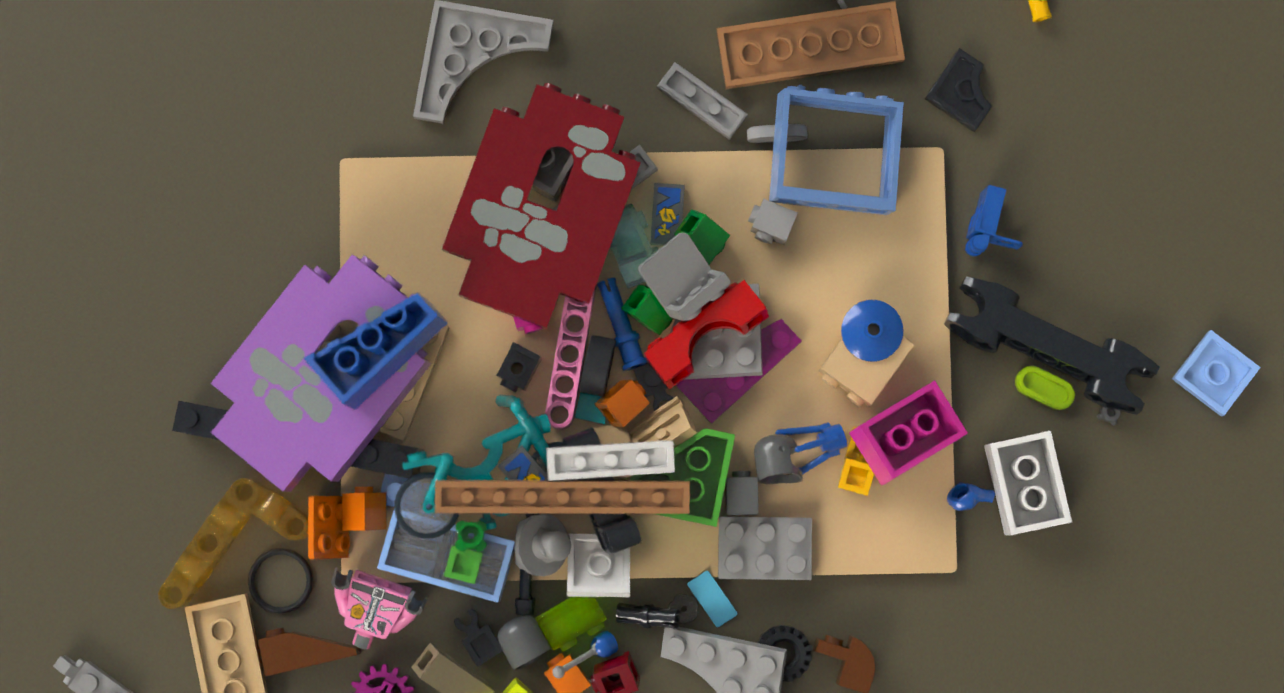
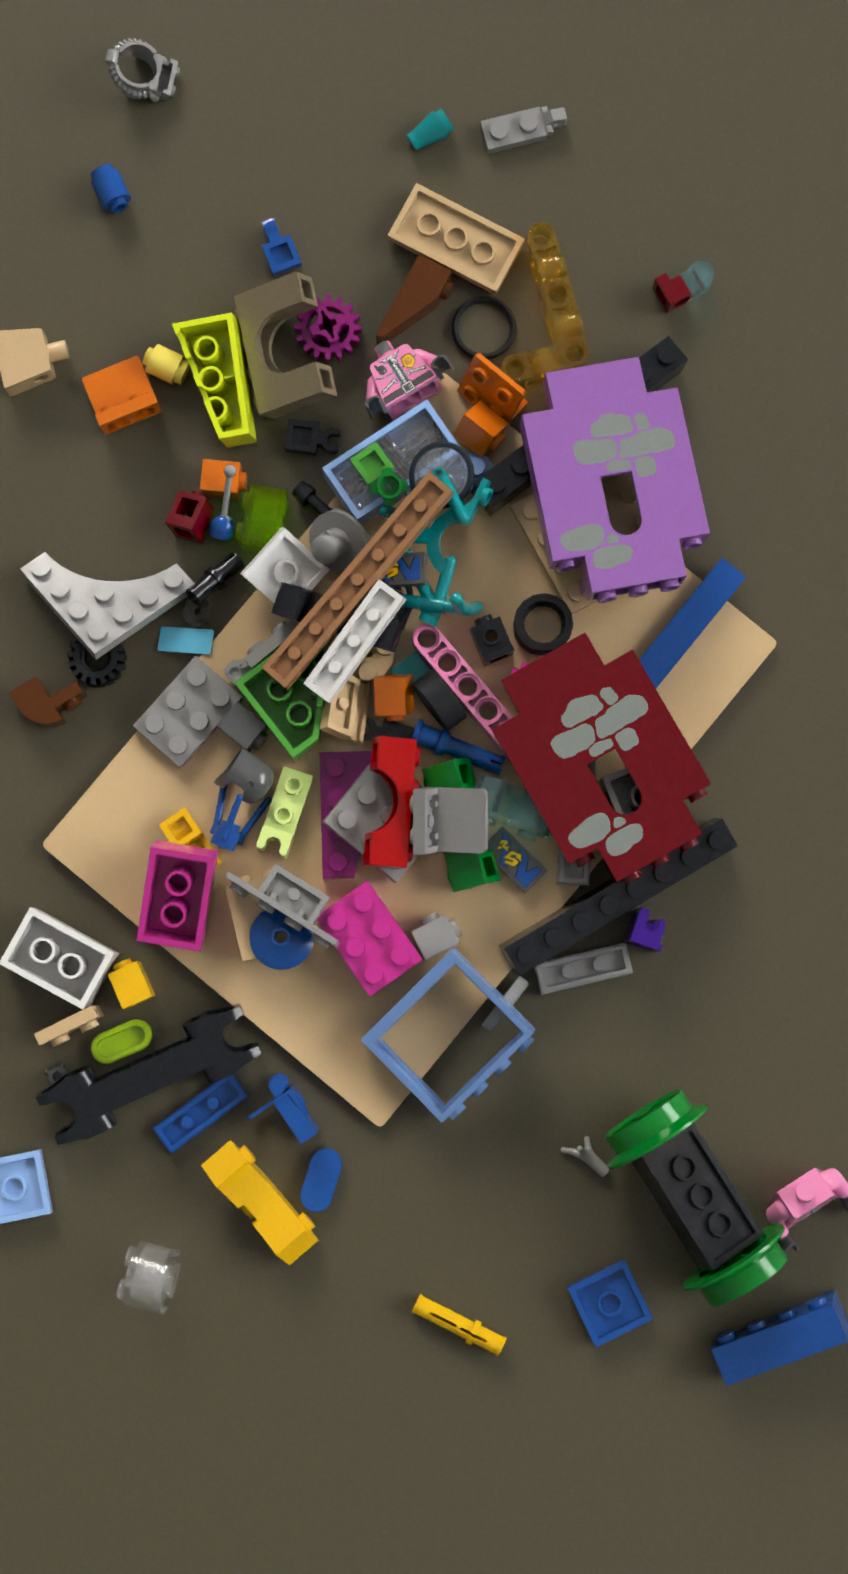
camera: 125 degrees right, 0 degrees up
(113, 450) = (685, 286): none -> leg
(376, 350) = (592, 524): blue wedge -> none
(379, 234) = (691, 620): none -> blue tile
(463, 41) = (791, 817): light grey plate -> none
(463, 319) = (531, 603): none -> black tyre
(522, 641) = (278, 467): dark grey helmet -> none
(640, 79) = (645, 934): none -> dark purple hinge
(644, 120) = (612, 901): none -> black brick
(675, 529) = (259, 652): none -> light grey hinge
(775, 411) = (285, 810): none -> yellowish green plate
(810, 45) = (554, 1094): medium nougat plate -> none
(817, 268) = (369, 938): none -> dark pink brick
(839, 344) = (291, 897): none -> light grey bracket
(959, 91) = (415, 1182): black tile -> none
(966, 496) = (91, 902): blue animal -> none
(999, 416) = (130, 983): none -> yellow brick
(1015, 159) = (321, 1179): none -> blue tile
(1046, 286) = (200, 1112): none -> blue tile
(1068, 199) = (248, 1188): none -> yellow brick
(1076, 436) = (58, 1032): none -> tan plate
(1192, 217) = (149, 1276): none -> clear brick

